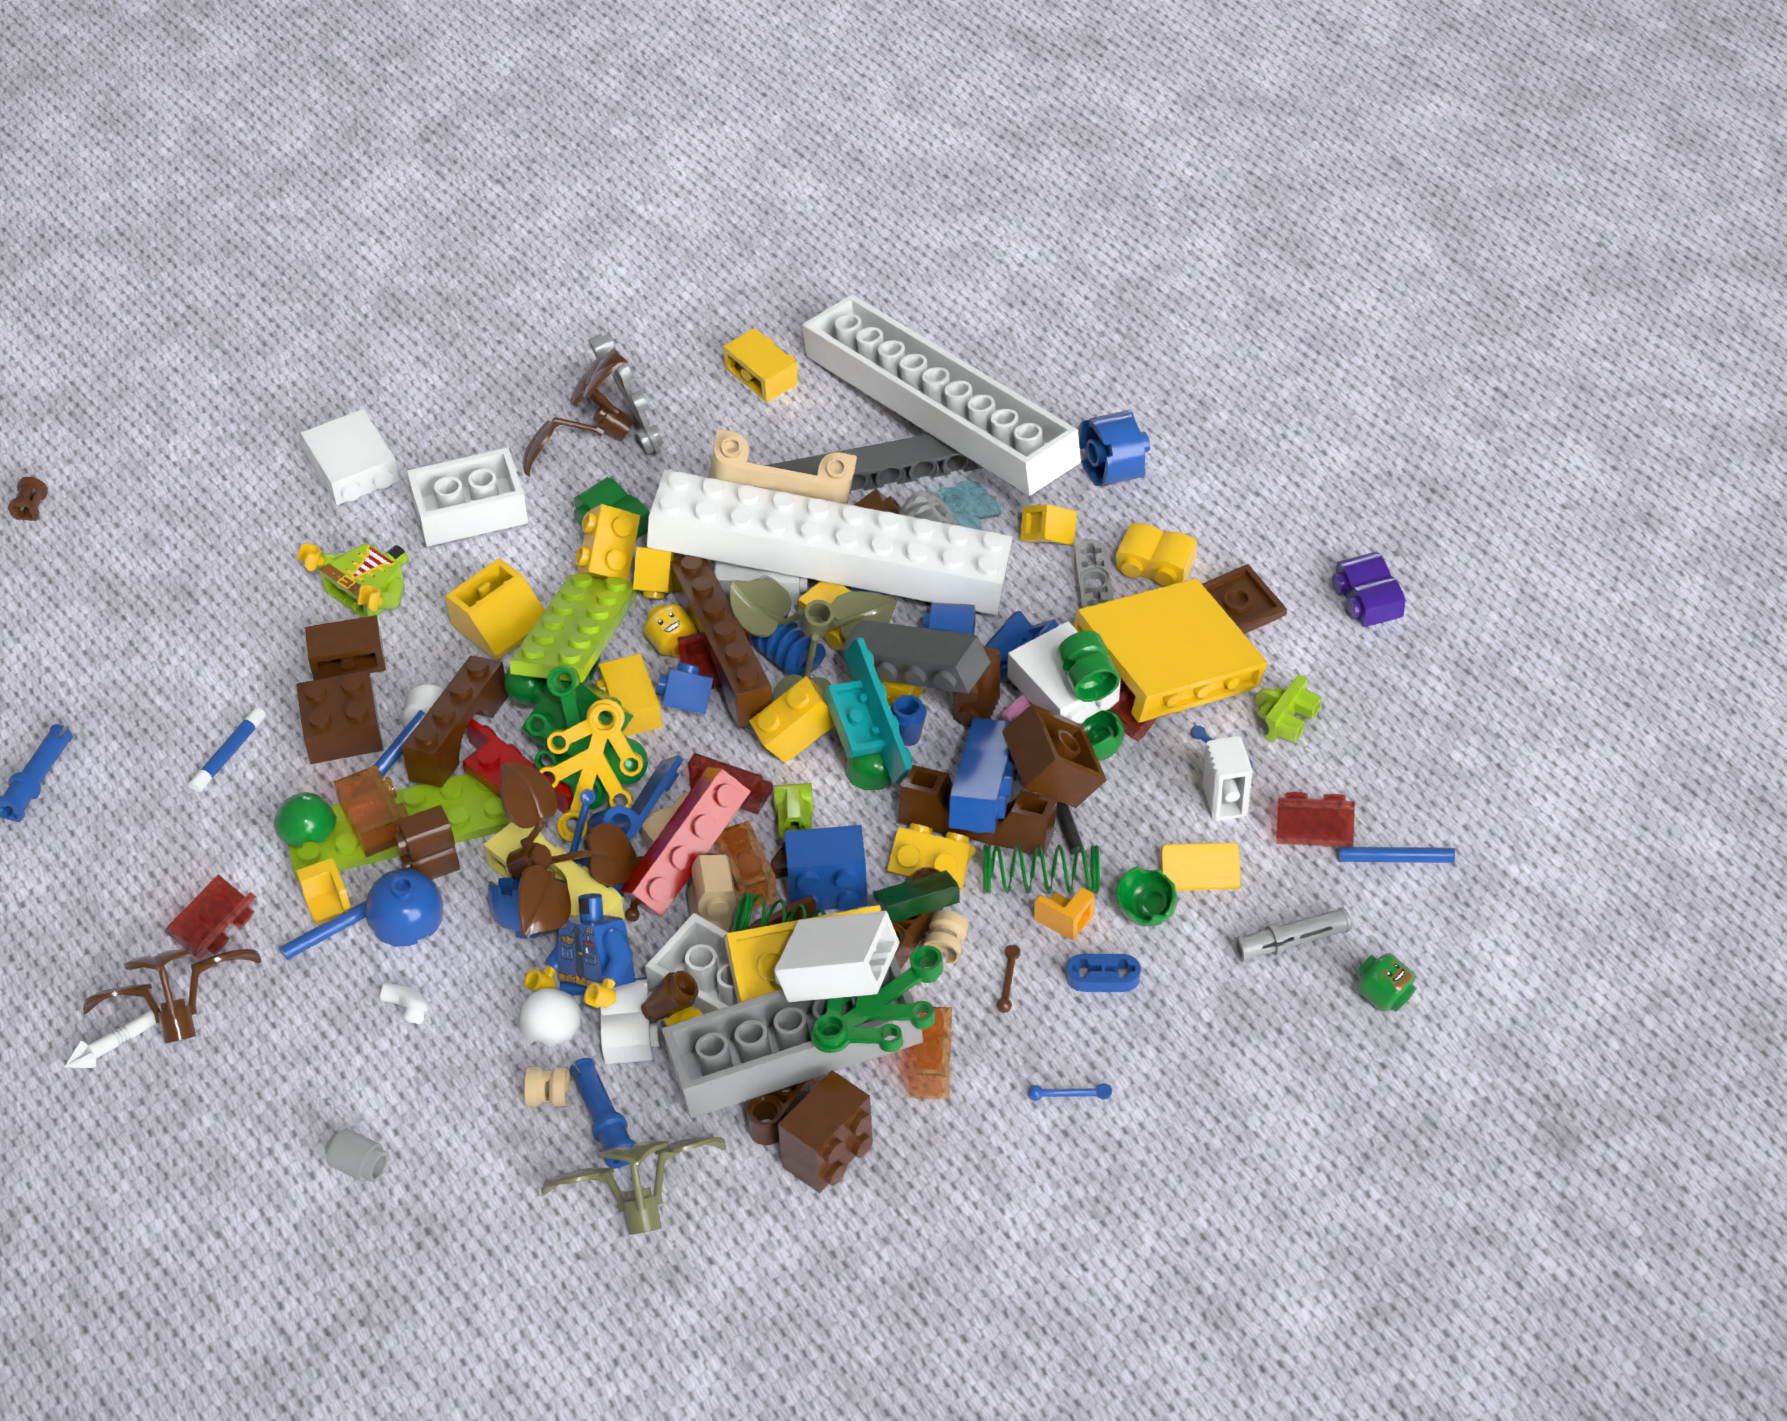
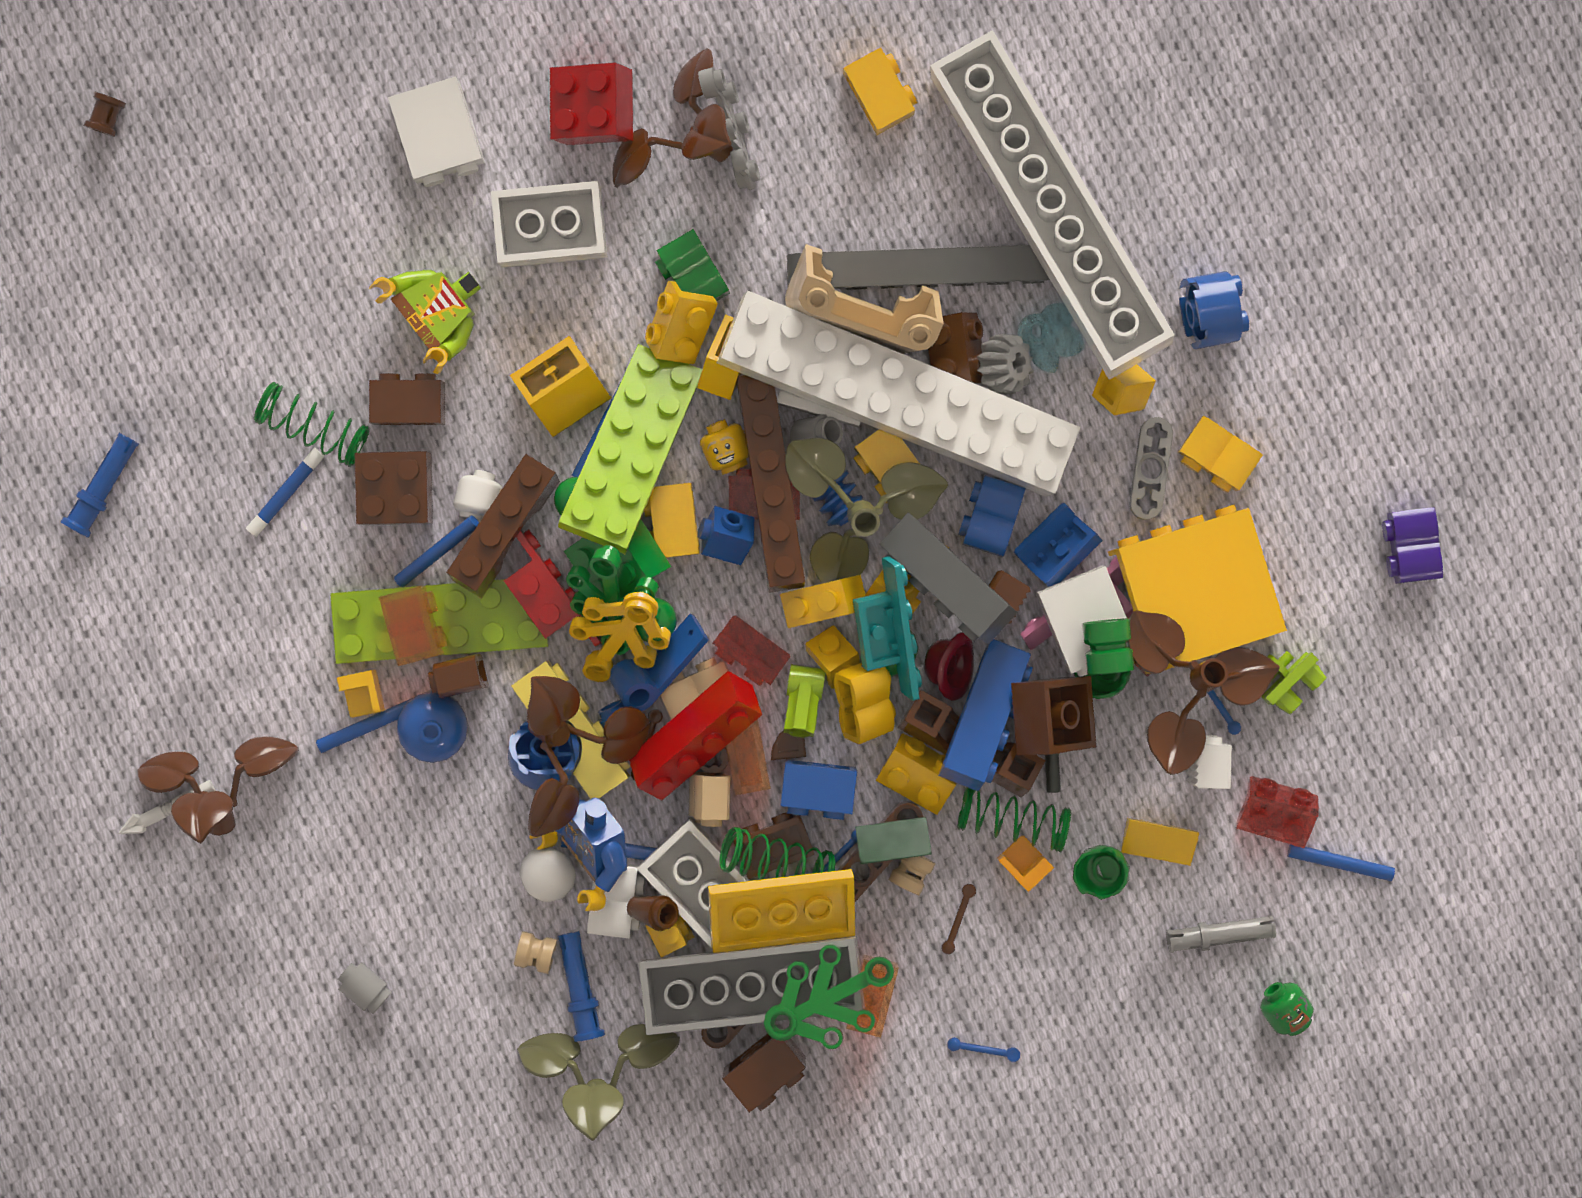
camera: 15 degrees right, 40 degrees up
(210, 917) = (257, 702): clear red bracket -> none
(211, 670) = (259, 417): none -> green piece
(304, 819) = (350, 616): green hair -> none
(408, 998) = (428, 828): white arm -> none
(494, 408) = (591, 104): none -> red brick
(587, 797) = (613, 660): blue hinge -> none
(823, 771) = (832, 652): none -> yellow bracket
(837, 956) = (800, 955): white brick -> none
(857, 791) = (864, 703): none -> yellow brick
(911, 718) = (934, 631): blue cone -> none
(937, 747) = (951, 665): none -> dark red hat
(1103, 972) = (1040, 943): blue beam -> none
(1193, 664) = (1237, 671): none -> reddish brown plant
(1246, 598) = (1286, 523): reddish brown tile -> none

